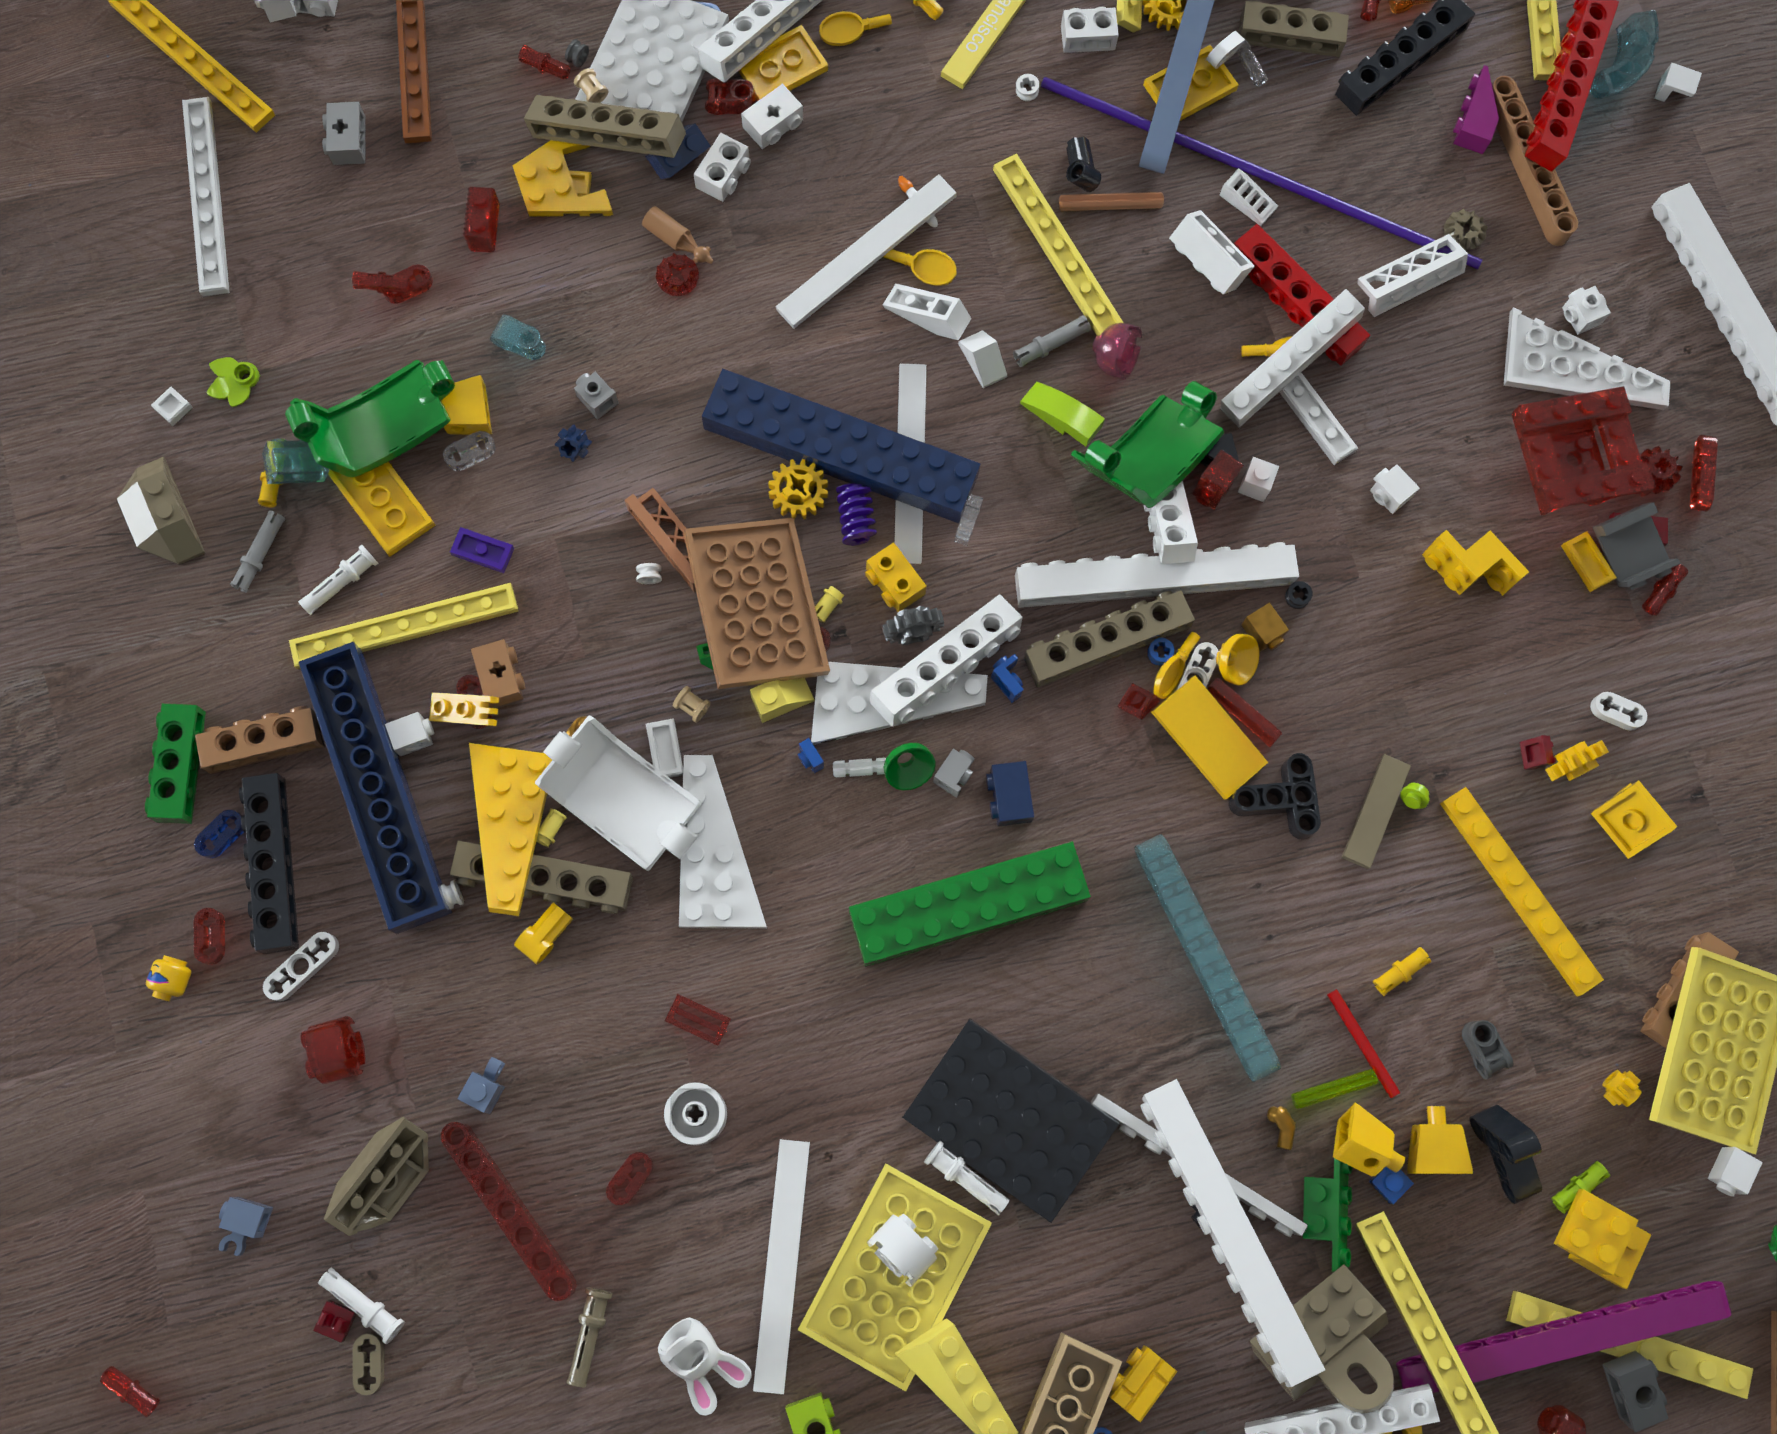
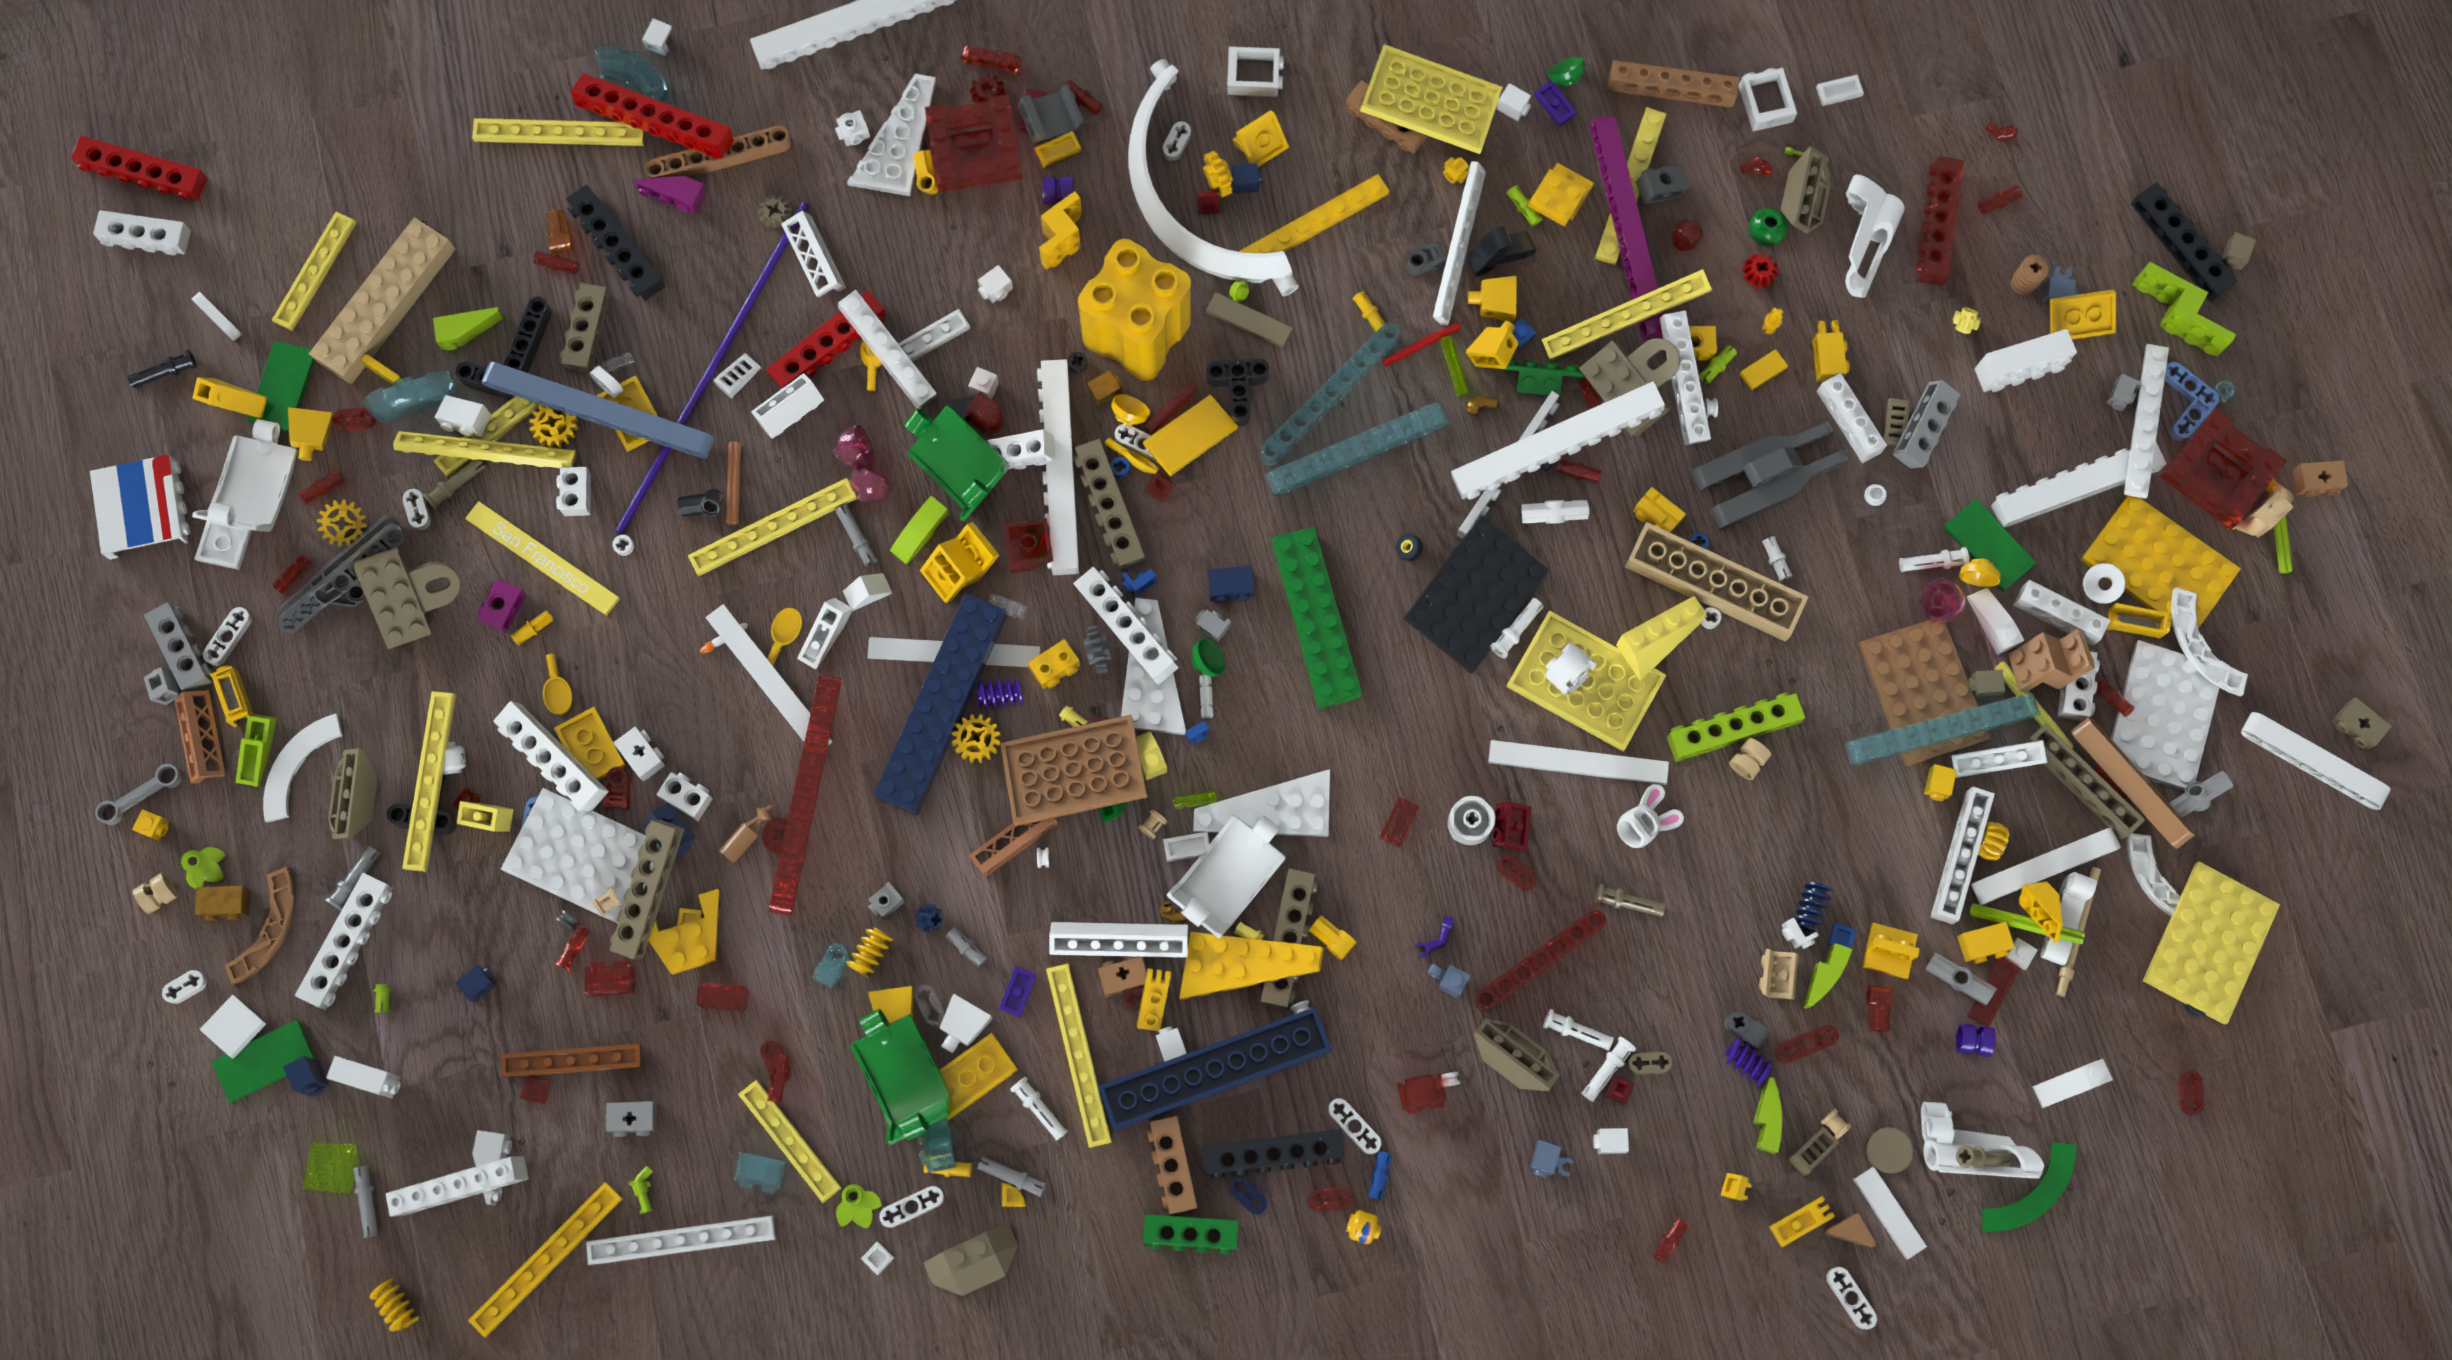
camera: 85 degrees left, 0 degrees up
(232, 553) = (1011, 1196): none -> yellow tile
(235, 999) = (1380, 1175): none -> blue pin
(237, 448) = (898, 1219): none -> white beam
(263, 1309) = (1611, 1141): none -> white brick
(266, 150) = (641, 1188): none -> lime piece
(276, 271) = (760, 1171): none -> clear light blue brick
(310, 306) = (790, 1141): none -> light yellow tile
(354, 1089) = (1450, 1079): none -> white bush
(382, 35) = (535, 1090): none -> clear red slope
(419, 1249) = (1565, 1029): none -> white pin
(445, 487) = (962, 1023): none -> white torso
(505, 101) = (609, 979): none -> clear red brick
(532, 380) = (869, 951): none -> yellow piece
(536, 1073) = (1443, 938): none -> dark purple arm
(538, 489) = (966, 947): none -> light grey pin
(541, 663) = (1118, 939): none -> white brick
(691, 1171) = (1511, 826): none -> dark red bracket
(724, 295) = (805, 795): none -> clear red beam
(725, 757) = (1195, 799): none -> clear neon green axle
(1021, 458) = (959, 562): none -> yellow bracket
(1047, 535) = (1027, 545): none -> clear red slope
(1070, 1037) = (1415, 550): none -> black wheel
(1134, 1231) = (1555, 511): none -> white piece
(1164, 331) = (853, 448): none -> clear pink cylinder
(1196, 1266) = (1579, 471): none -> clear red pin
(1295, 921) = (1333, 384): none -> clear light blue beam
(1304, 1284) = (1589, 393): none -> clear red axle
(1371, 649) = (1135, 309): none -> yellow brick
(1453, 763) = (1187, 246): none -> white panel
(1514, 1094) = (1459, 244): none -> white tile
(1532, 554) = (1057, 190): none -> dark purple wheel
(1542, 392) = (925, 170): none -> yellow piece
(1576, 801) = (1246, 178): none -> dark blue brick
(1707, 808) = (1254, 88): none -> white window
(1740, 1231) = (1555, 103): none -> dark purple plate

